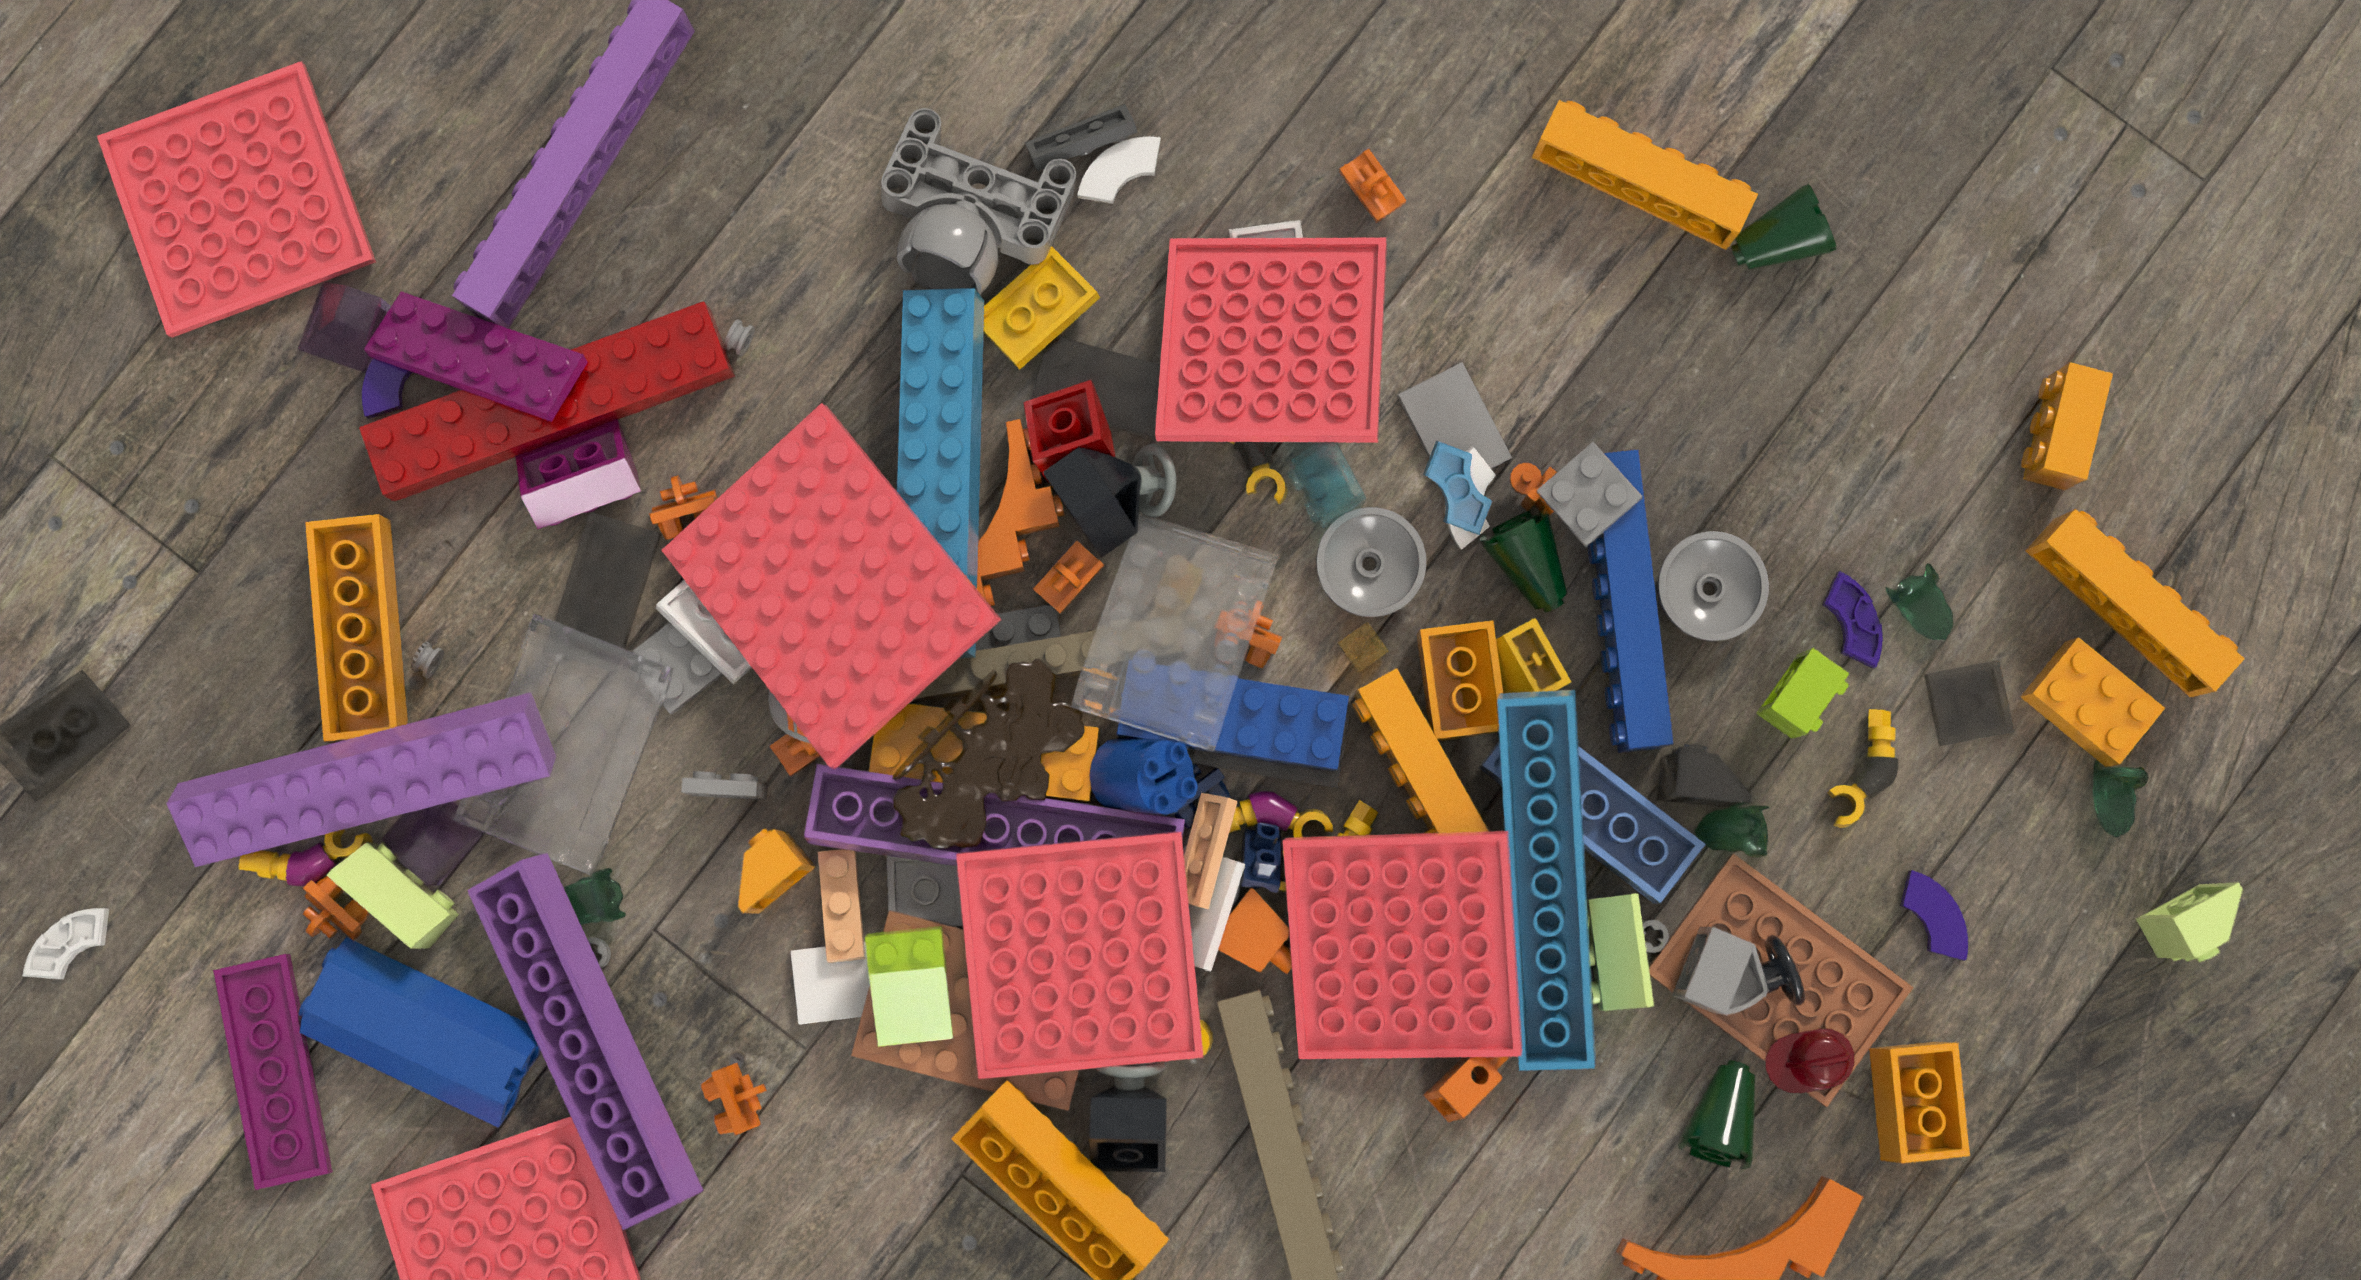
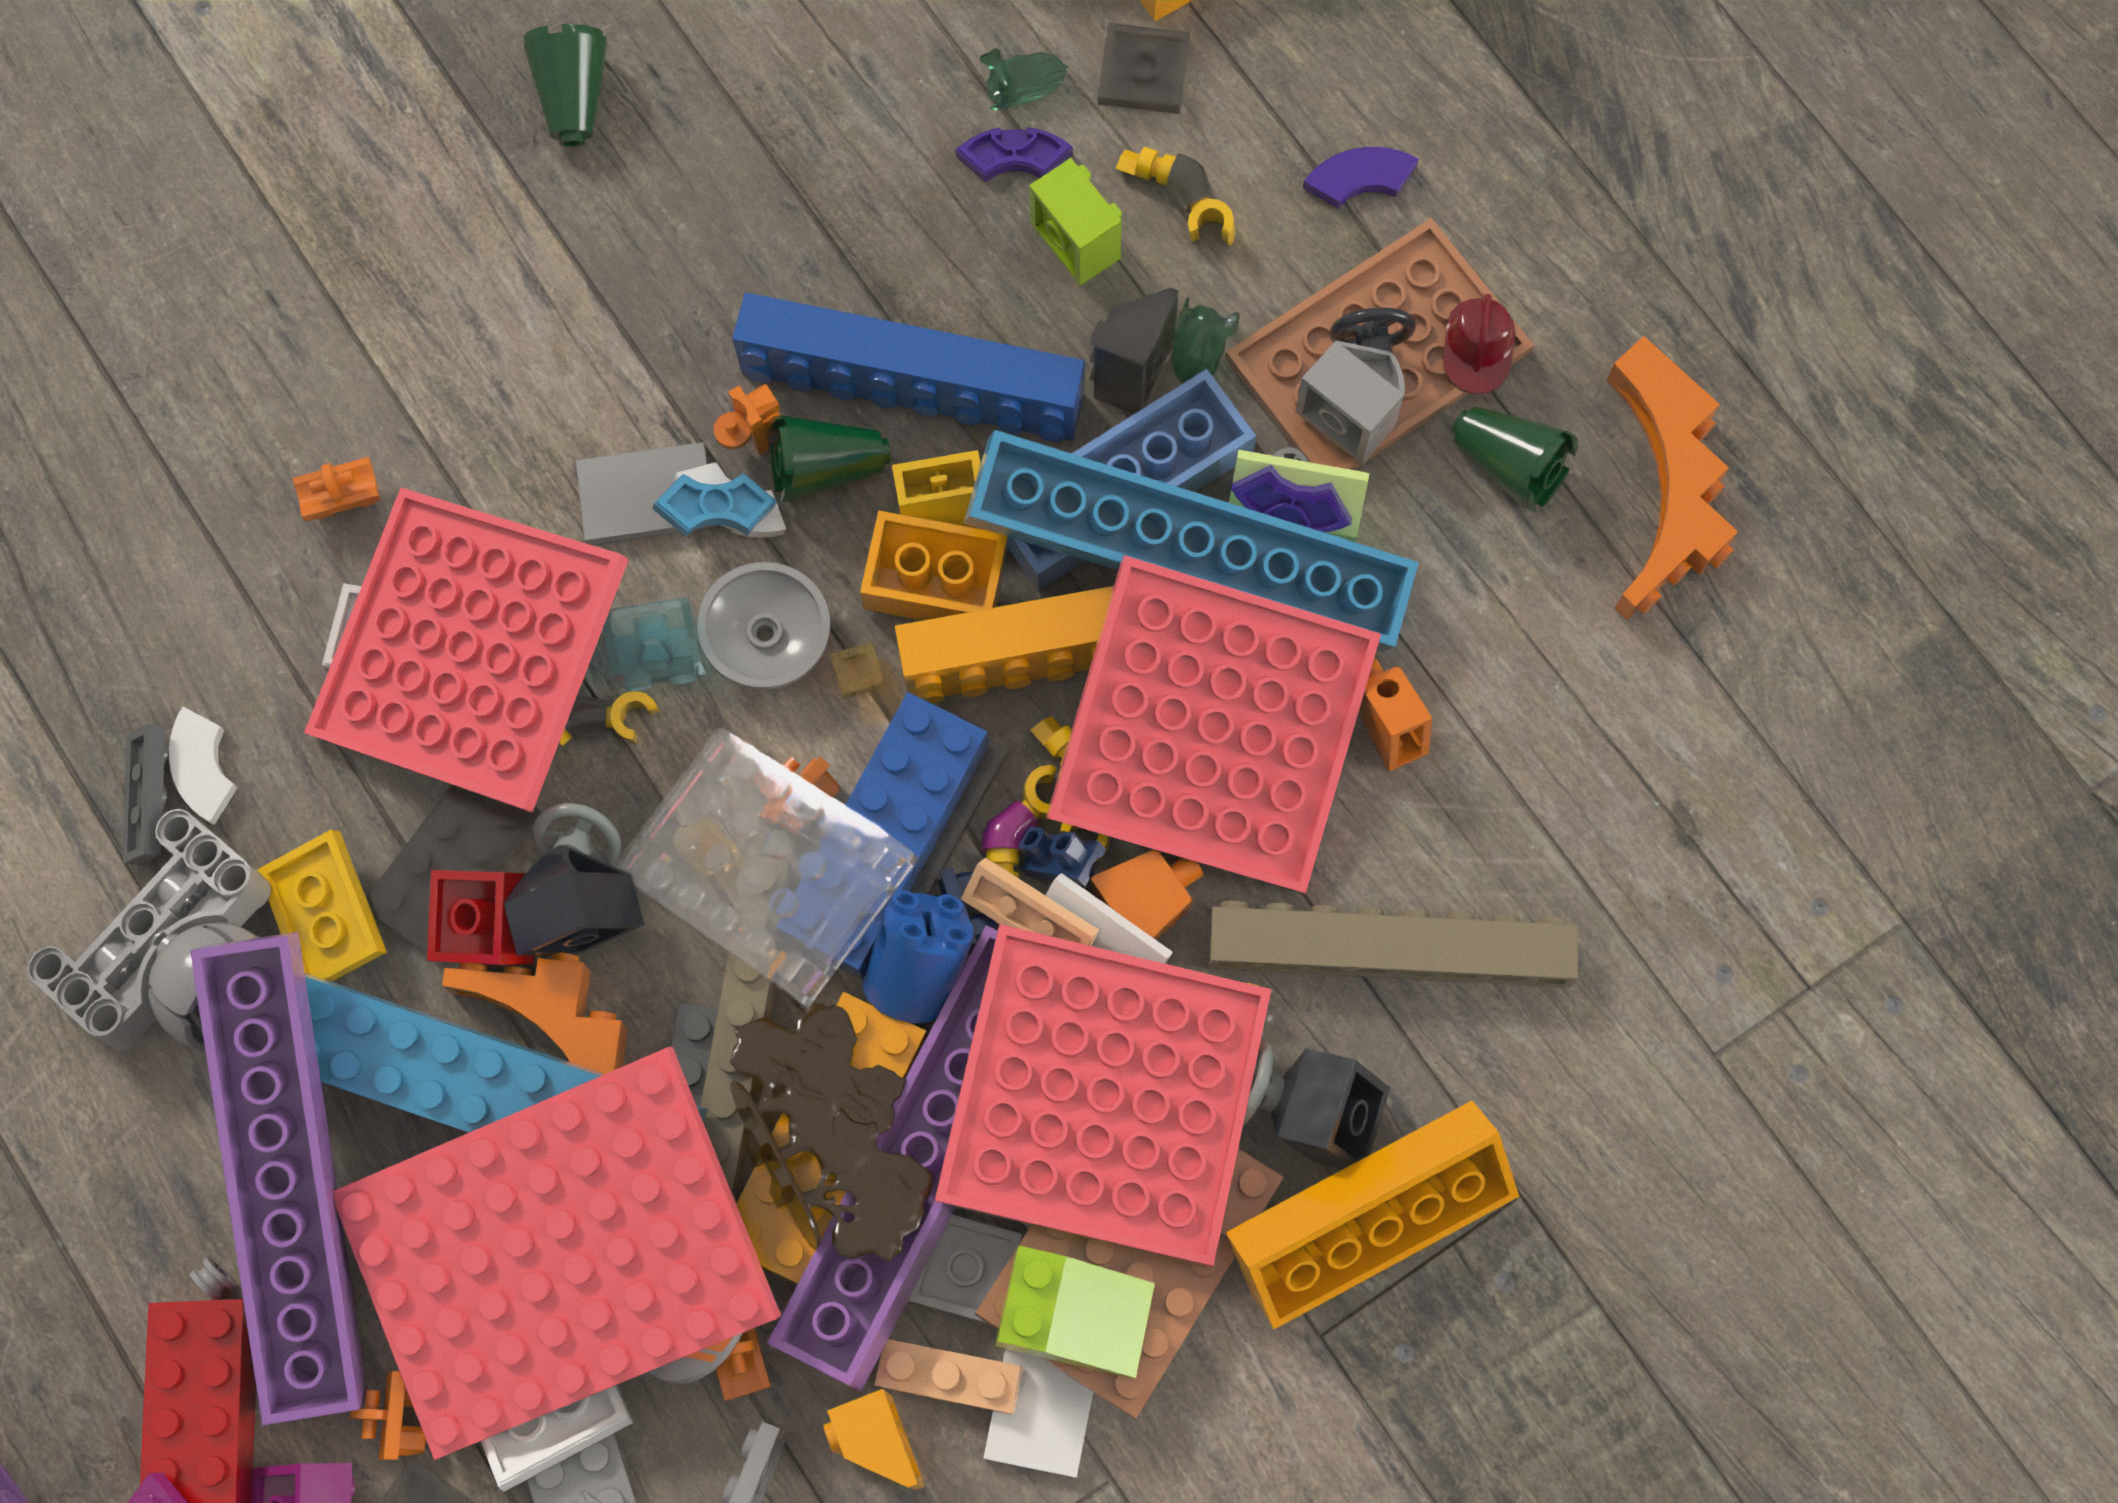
camera: 70 degrees left, 10 degrees down
(822, 361) = (279, 1177): none -> medium lavender brick
(1068, 577) = (653, 974): orange hips -> none
(1589, 494) = (775, 356): light grey plate -> none
(1609, 950) = (1304, 505): none -> dark purple tile
(1645, 174) = (443, 199): light orange brick -> none
(1734, 572) = (922, 253): light grey dish -> none
(1919, 1102) = (1558, 247): light orange brick -> none

